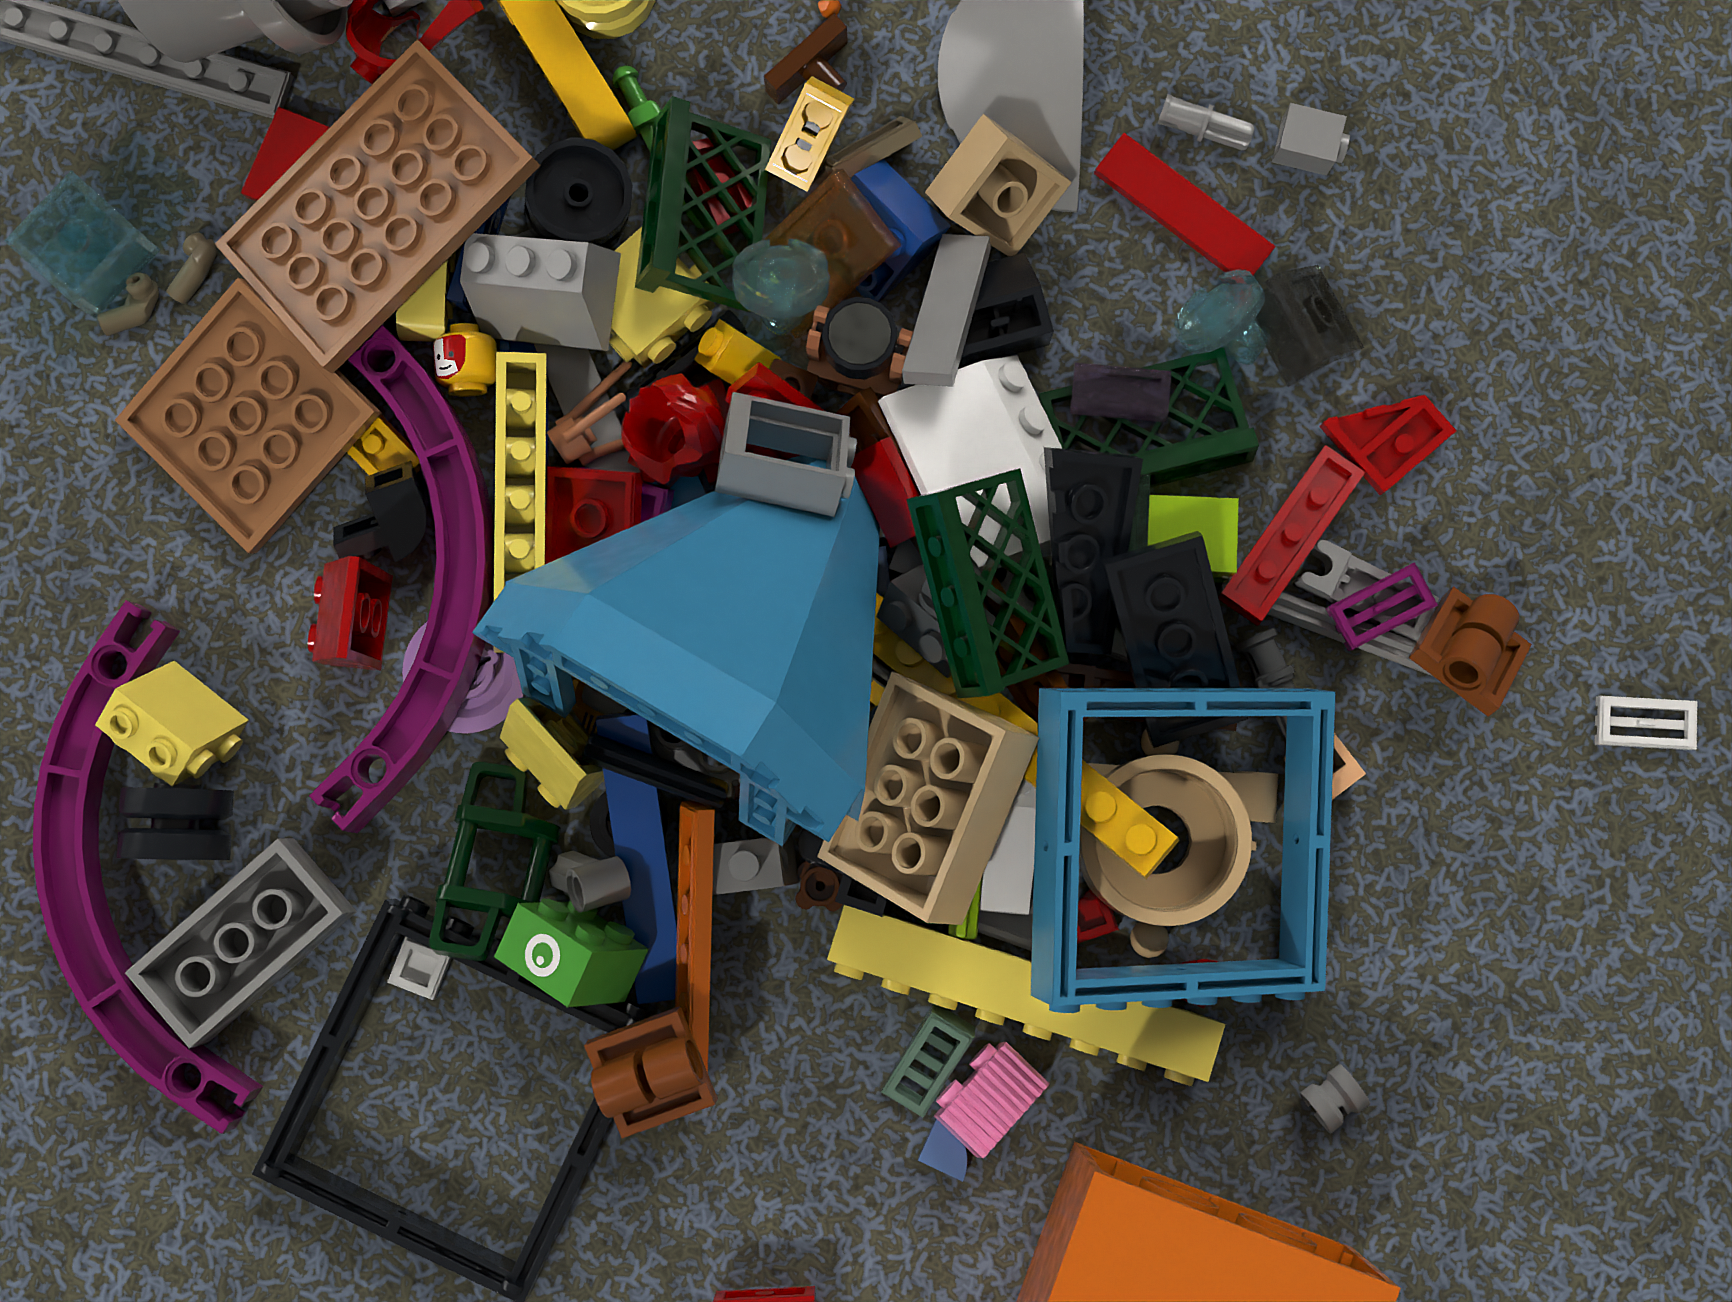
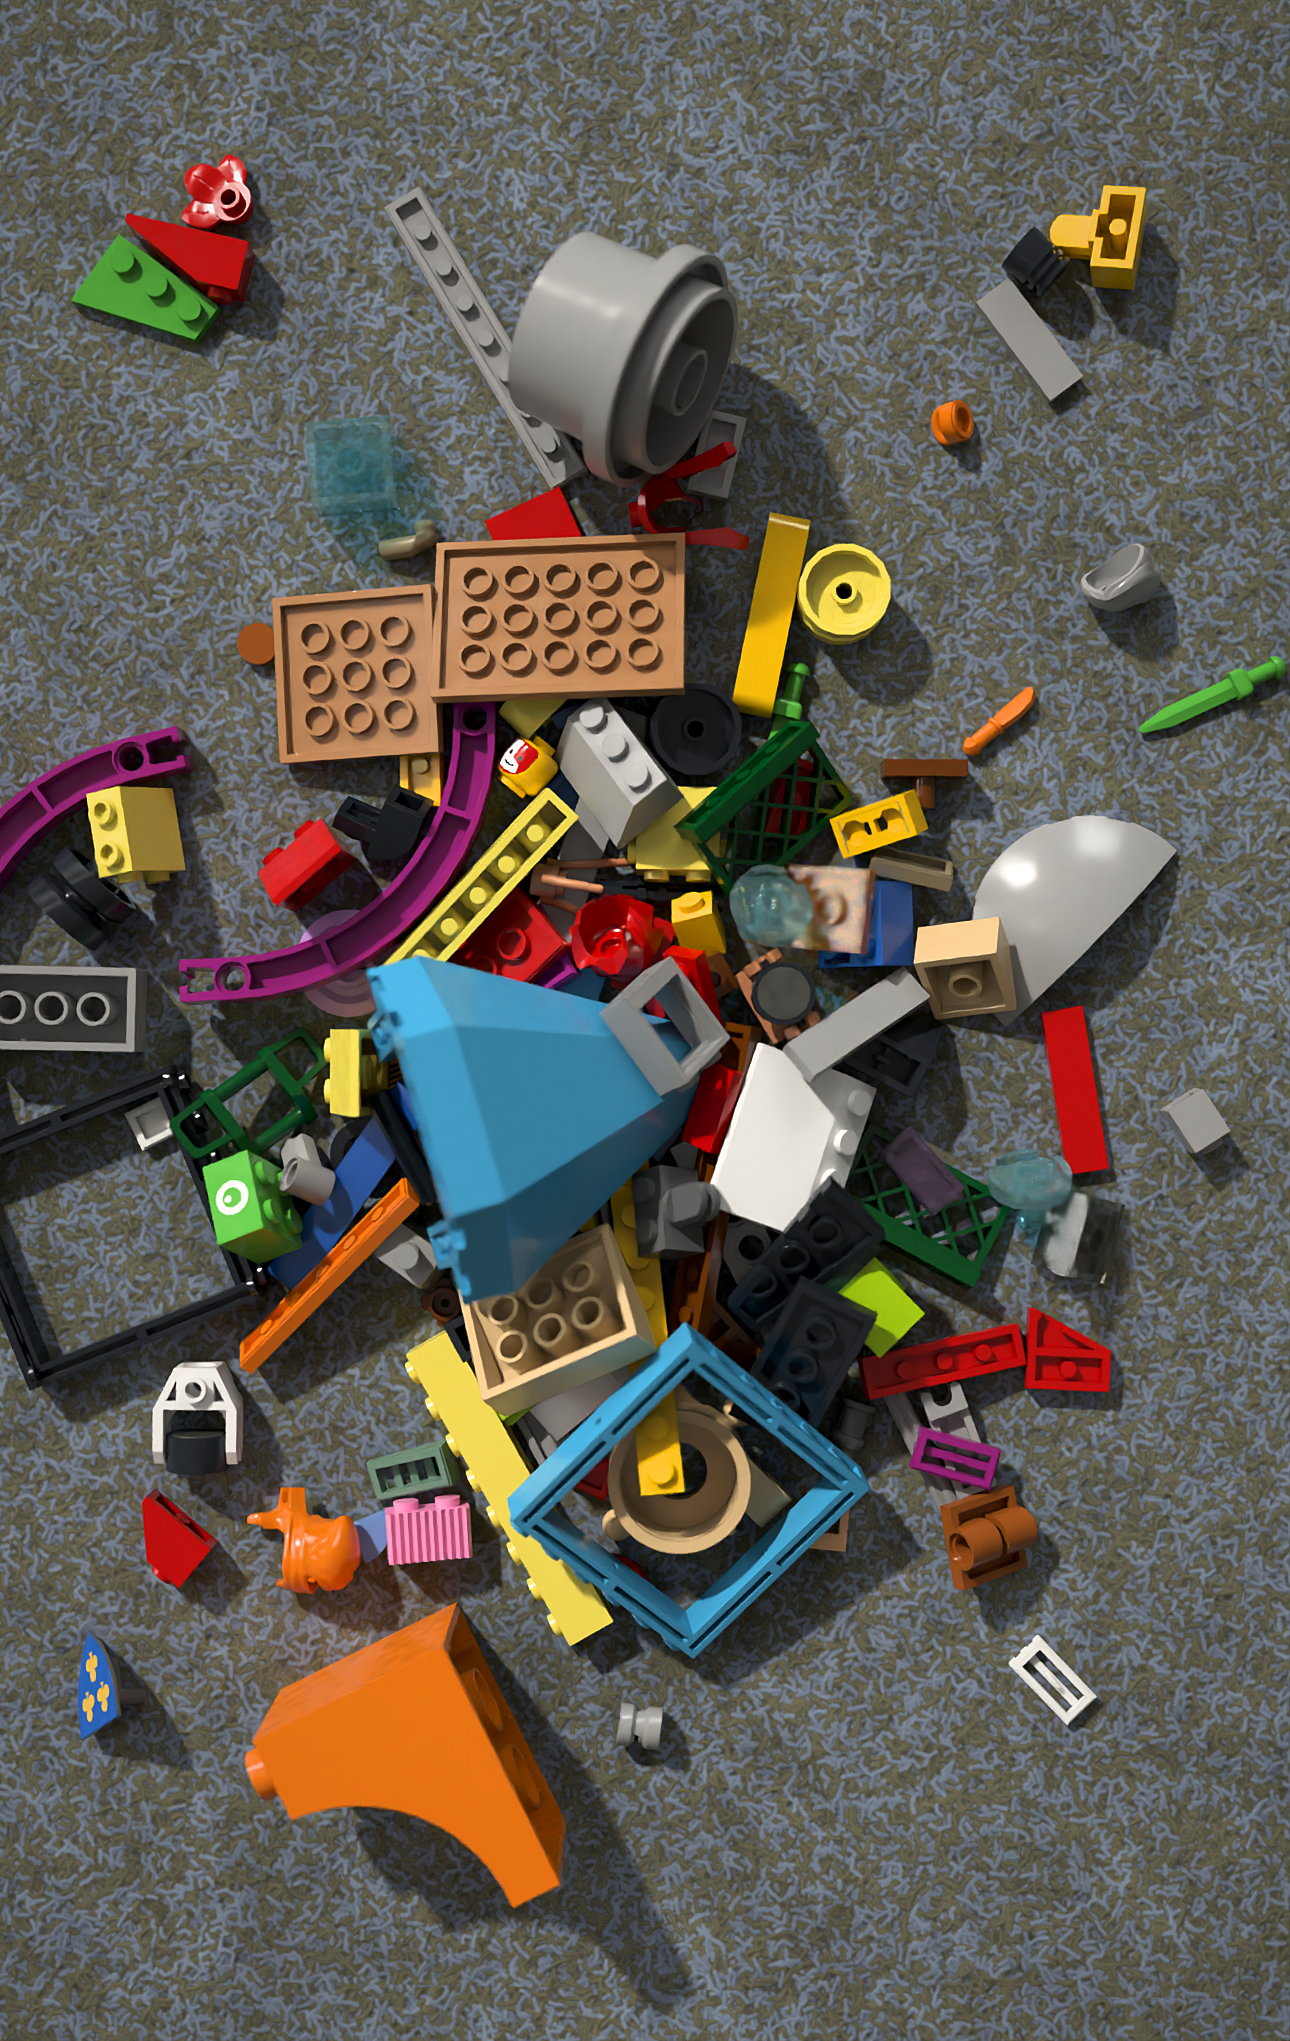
camera: 45 degrees right, 5 degrees up
(137, 308) = (351, 535): dark tan arm -> none
(138, 472) = (257, 644): none -> dark orange tile
(649, 1073) = (233, 1325): dark orange plate -> none
(717, 1220) = (198, 1449): none -> white piece
(903, 1207) = (314, 1547): none -> orange piece
(960, 592) = (691, 1219): dark green fence -> none
(1205, 123) = (1140, 1047): light grey axle -> none

